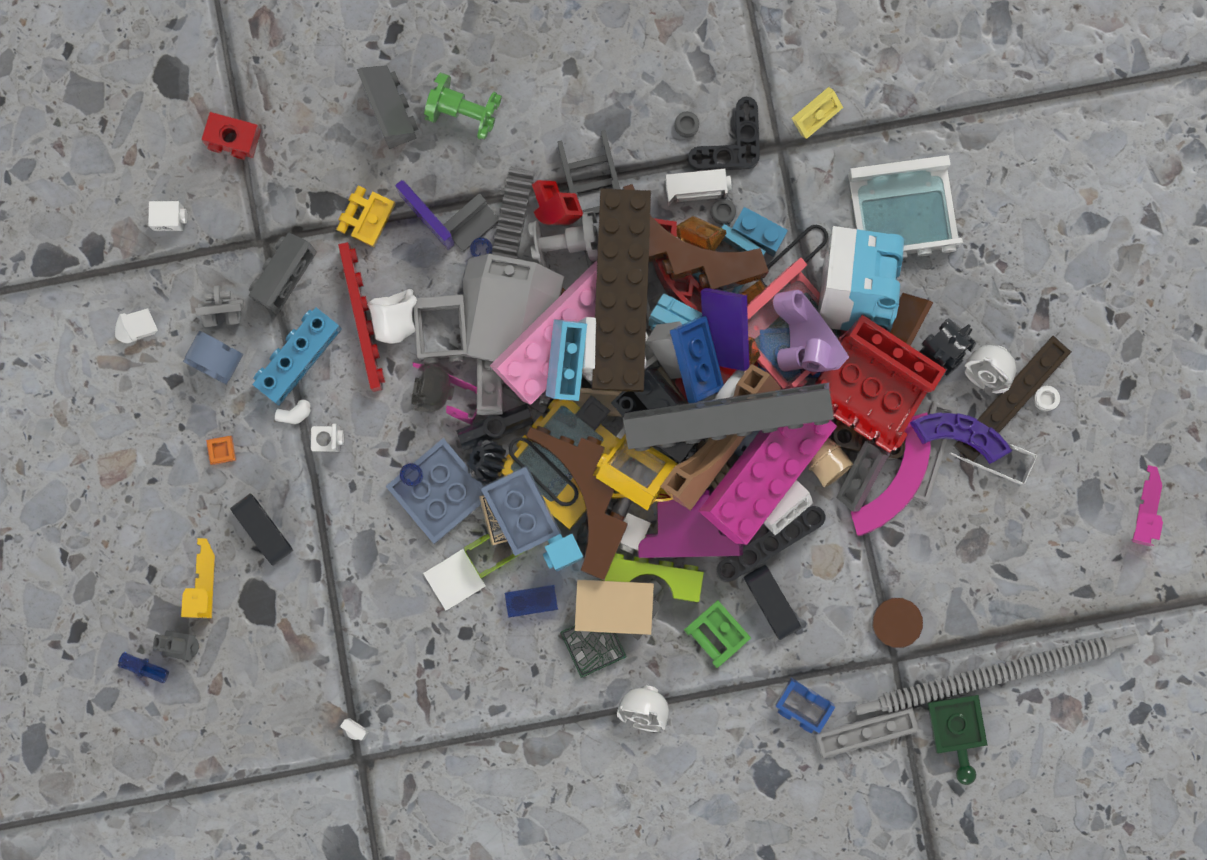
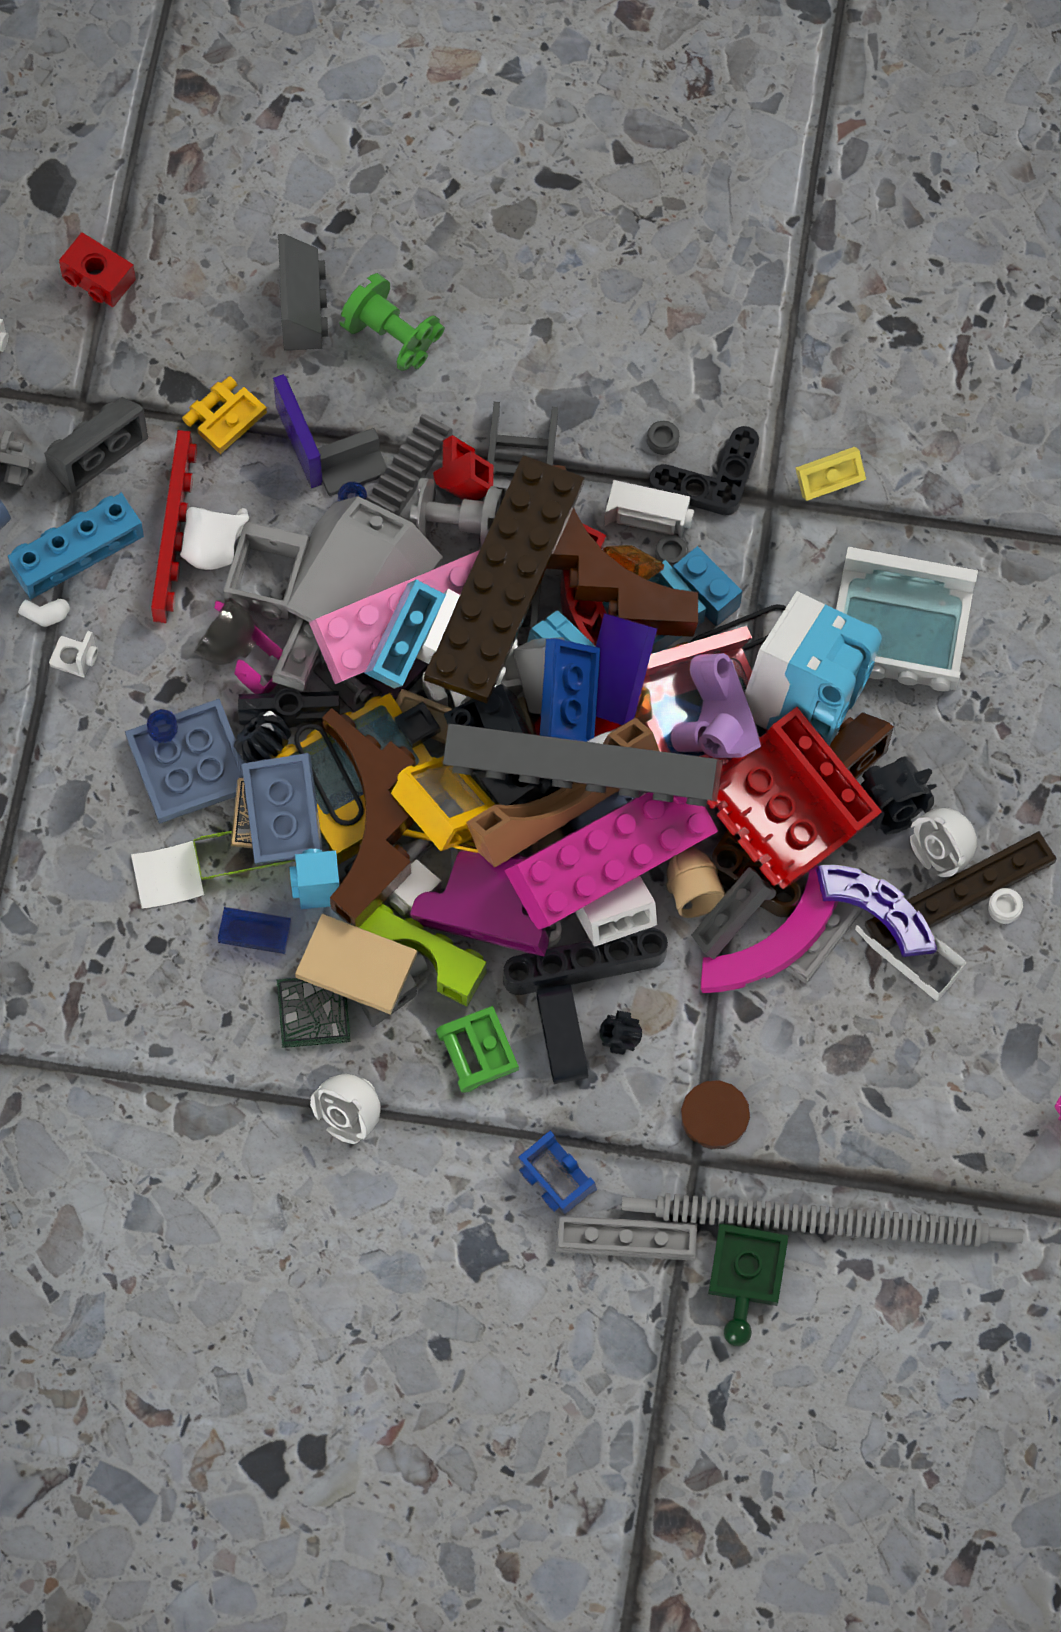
camera: 15 degrees right, 15 degrees down
(813, 588) = (620, 1032): none -> black gear

